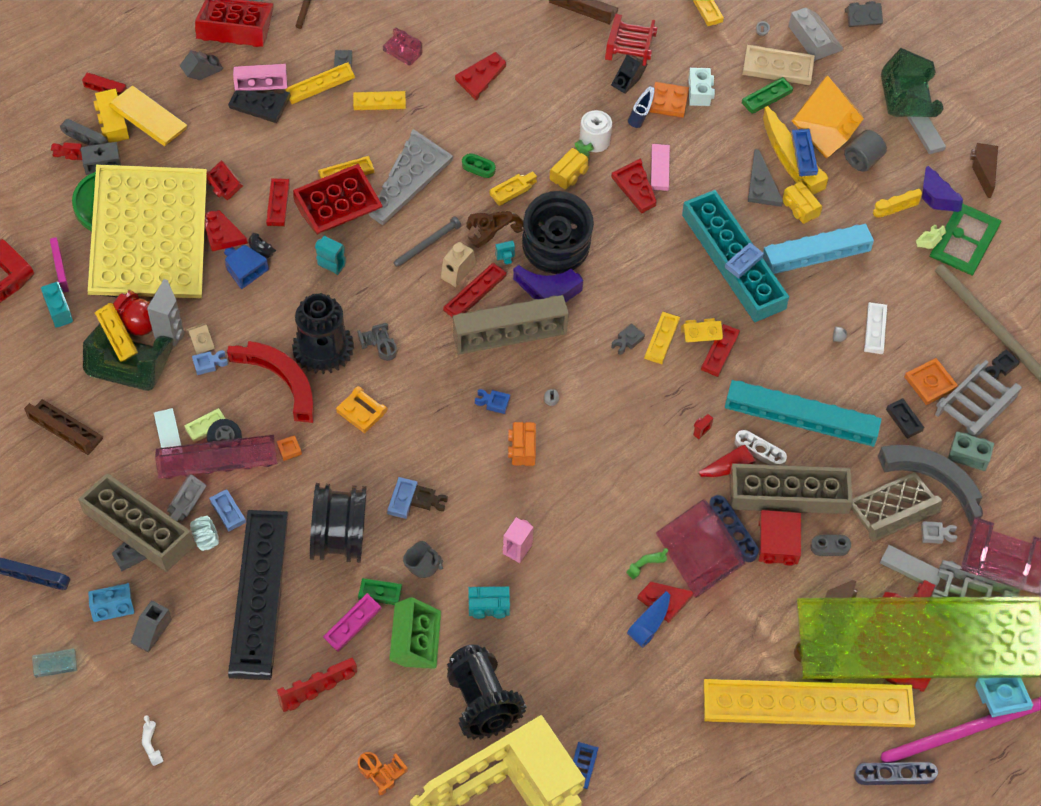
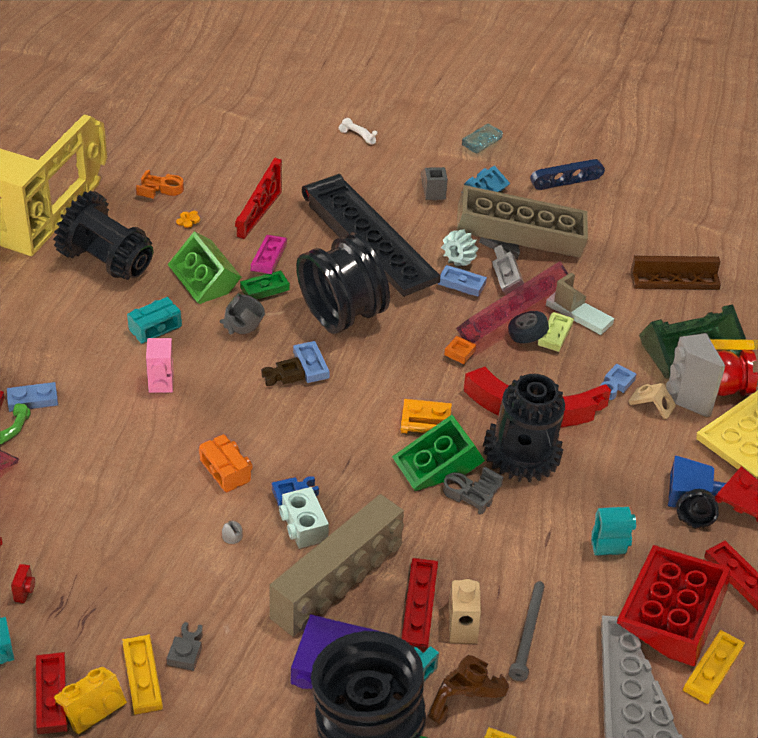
camera: 145 degrees right, 15 degrees down
(169, 439) = (566, 295): none -> dark tan panel
(381, 371) = (437, 454): none -> green slope
(383, 713) = (188, 218): none -> light orange plant
(502, 376) = (304, 517): none -> light aqua brick
(618, 583) = (33, 396): none -> medium blue plate

